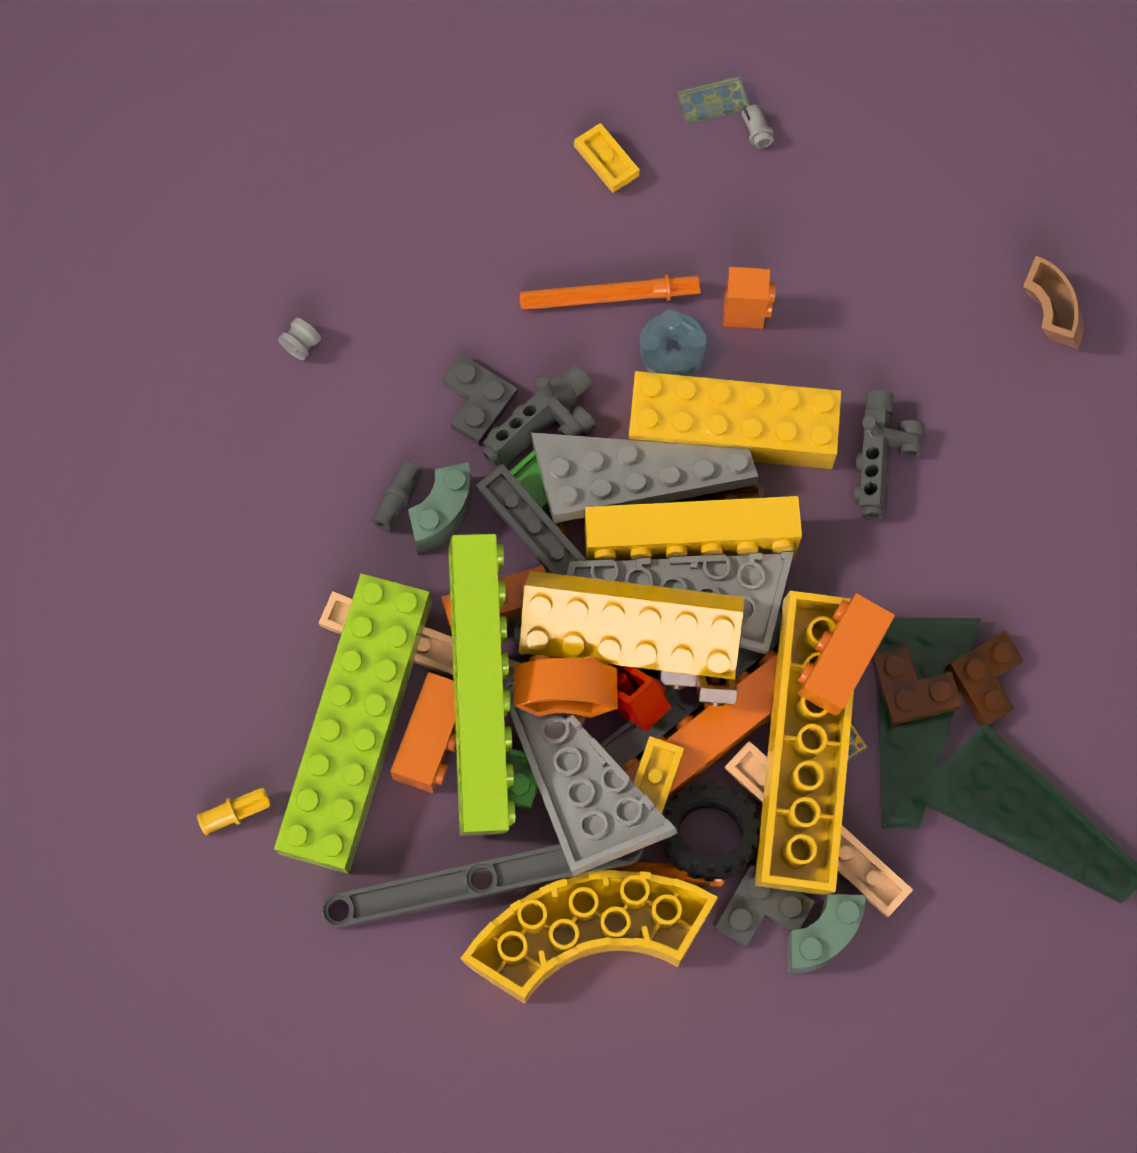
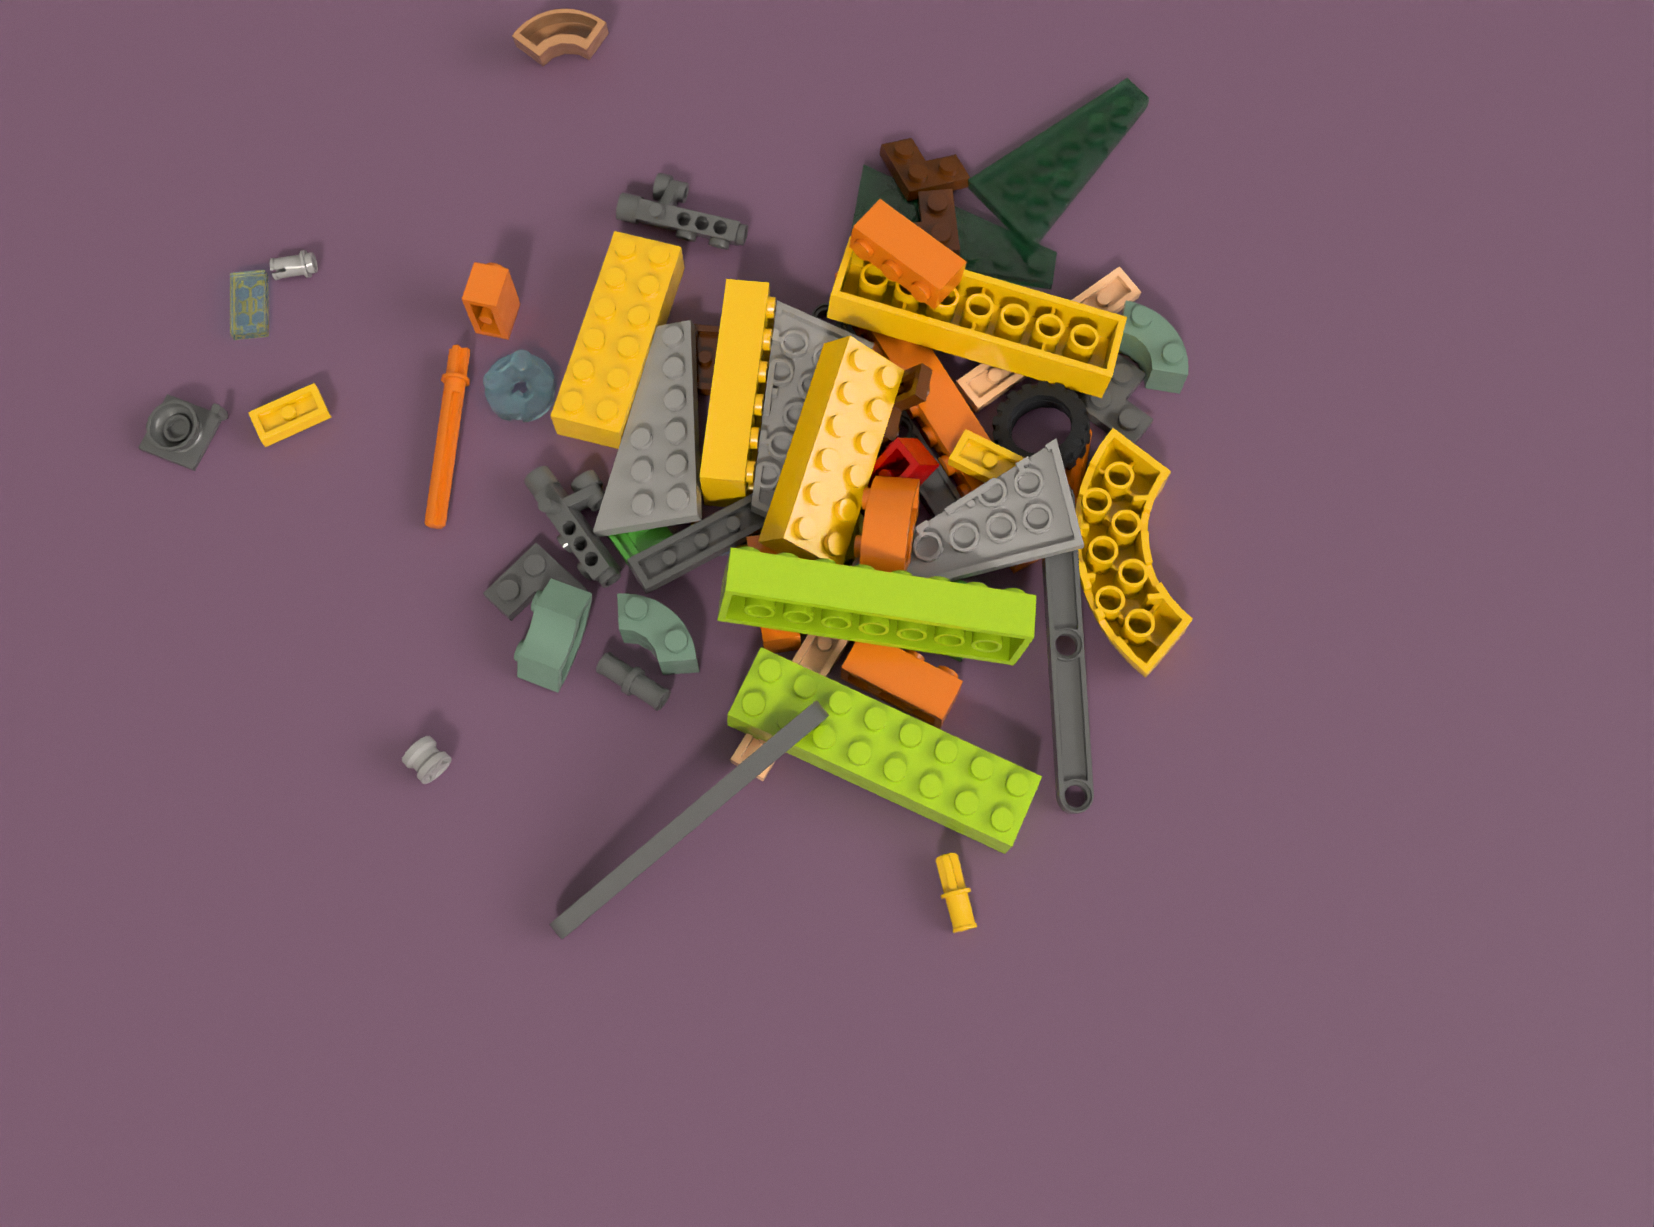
camera: 80 degrees left, 0 degrees up
(265, 562) = (689, 819): none -> dark grey beam
(427, 419) = (553, 635): none -> sand green brick
(577, 76) = (181, 431): none -> dark grey hat

